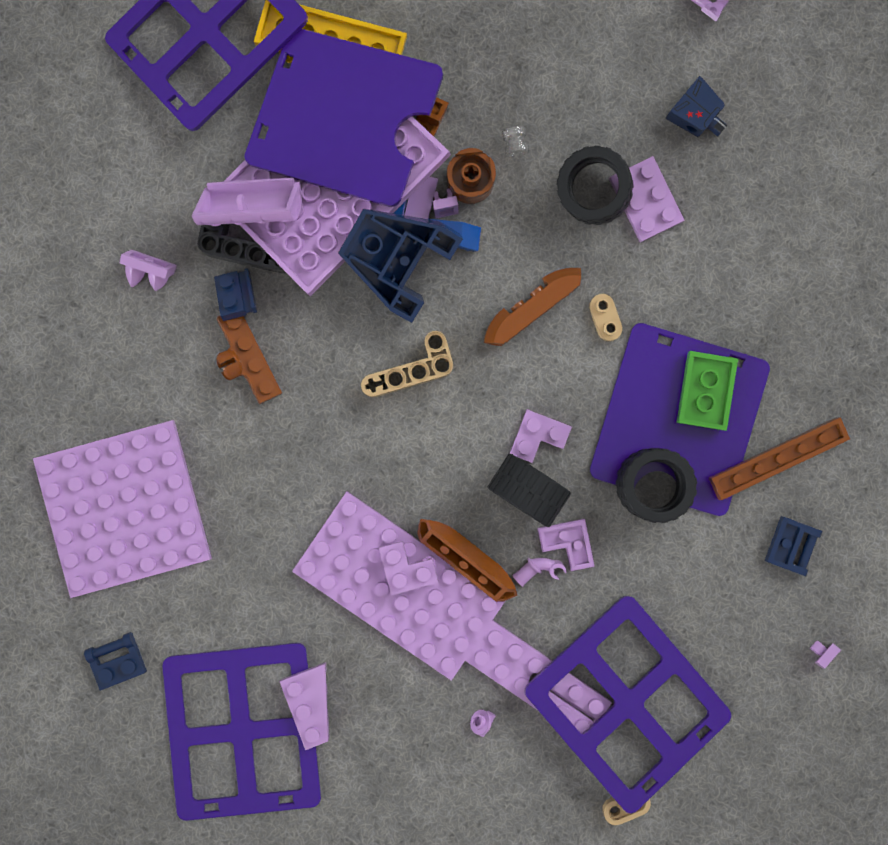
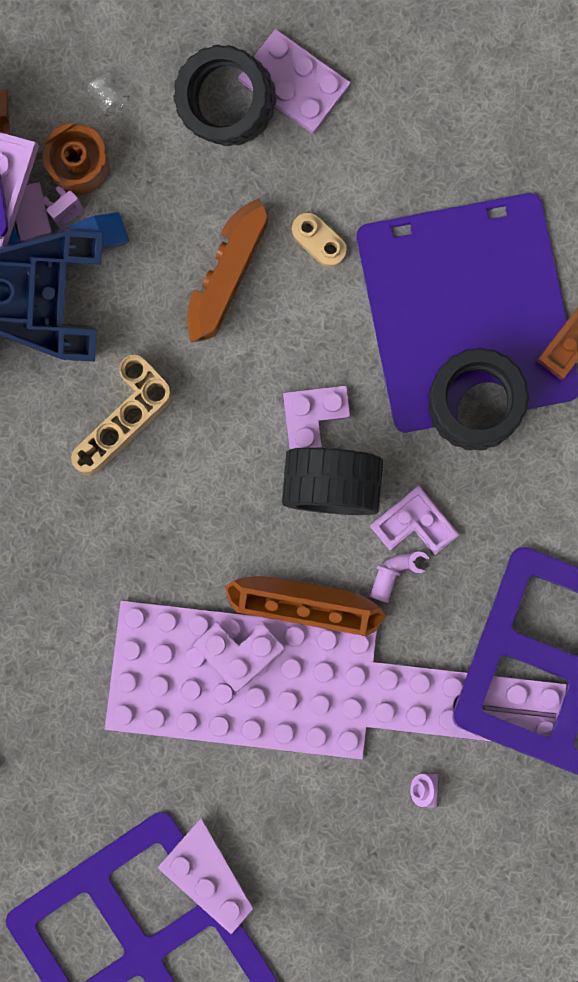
camera: 25 degrees left, 5 degrees down
(707, 390) = (480, 262): bright green plate -> none

